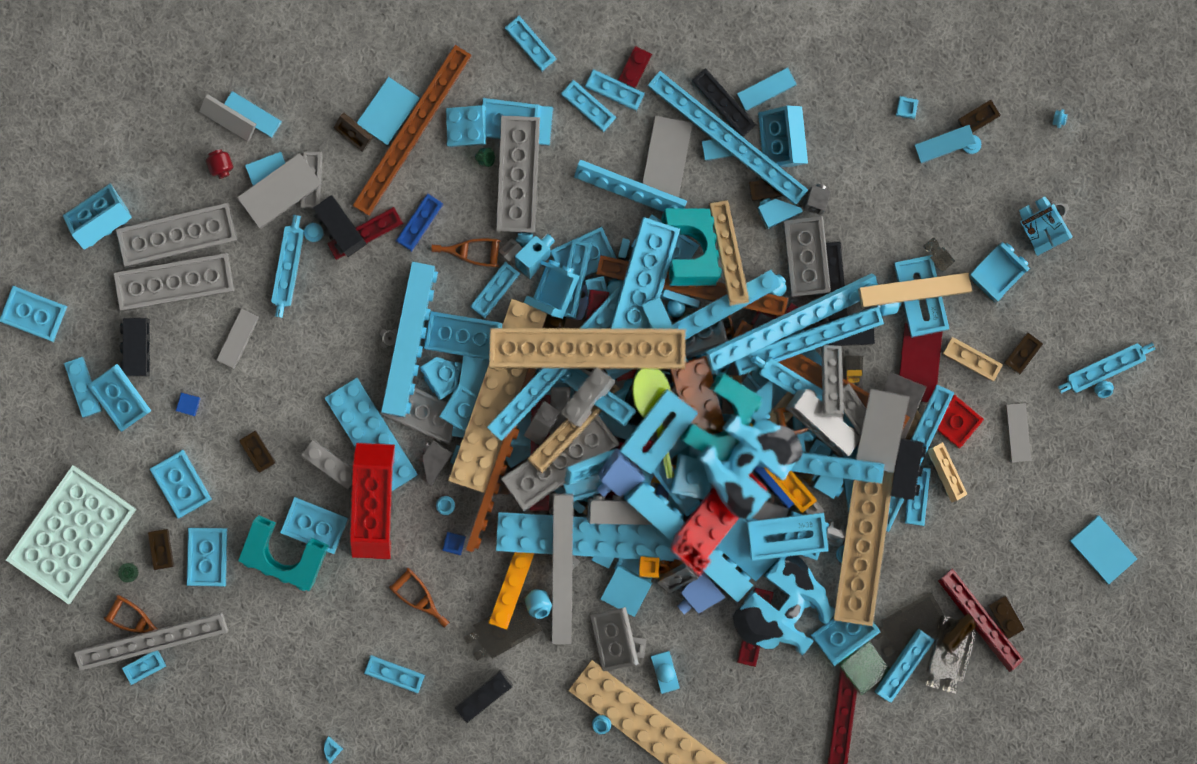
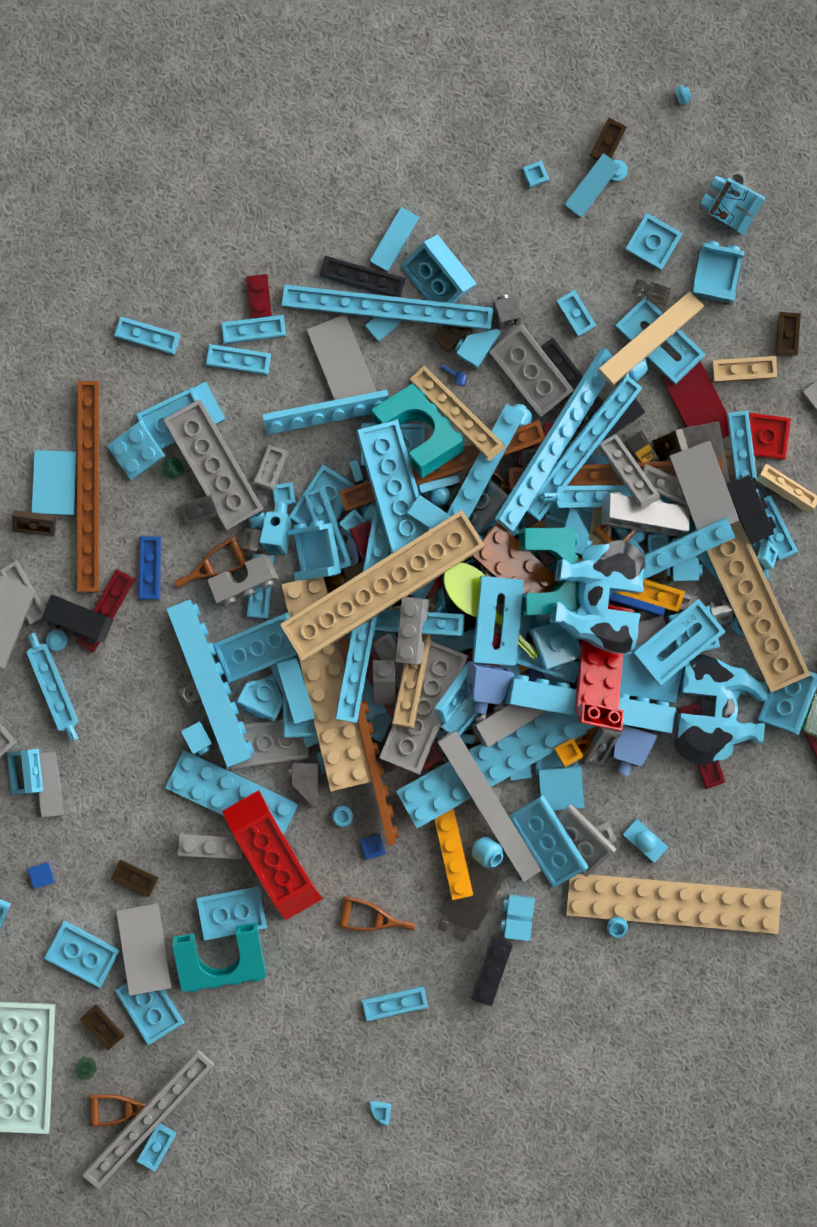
camera: 35 degrees left, 0 degrees up
(230, 320) = (31, 771): none -> medium azure tile
(230, 510) = (144, 949): none -> light grey tile
(372, 376) = (197, 739): none -> medium azure brick
(470, 387) = (295, 691): none -> medium azure tile
(486, 202) = (200, 509): none -> flat silver plate
(500, 281) = (260, 574): none -> light grey arch
(531, 668) = (518, 917): none -> medium azure piece
(558, 230) = (284, 494): none -> medium azure tile
(560, 204) = (271, 468): none -> light grey plate
(590, 625) = (548, 841): none -> medium azure tile
(749, 228) = (460, 379): none -> blue hand
(870, 234) = (576, 313): none -> medium azure plate
(877, 380) = (670, 444): none -> dark brown plate
(898, 512) = (767, 554): none -> medium azure tile
(965, 217) = (653, 241): none -> medium azure plate

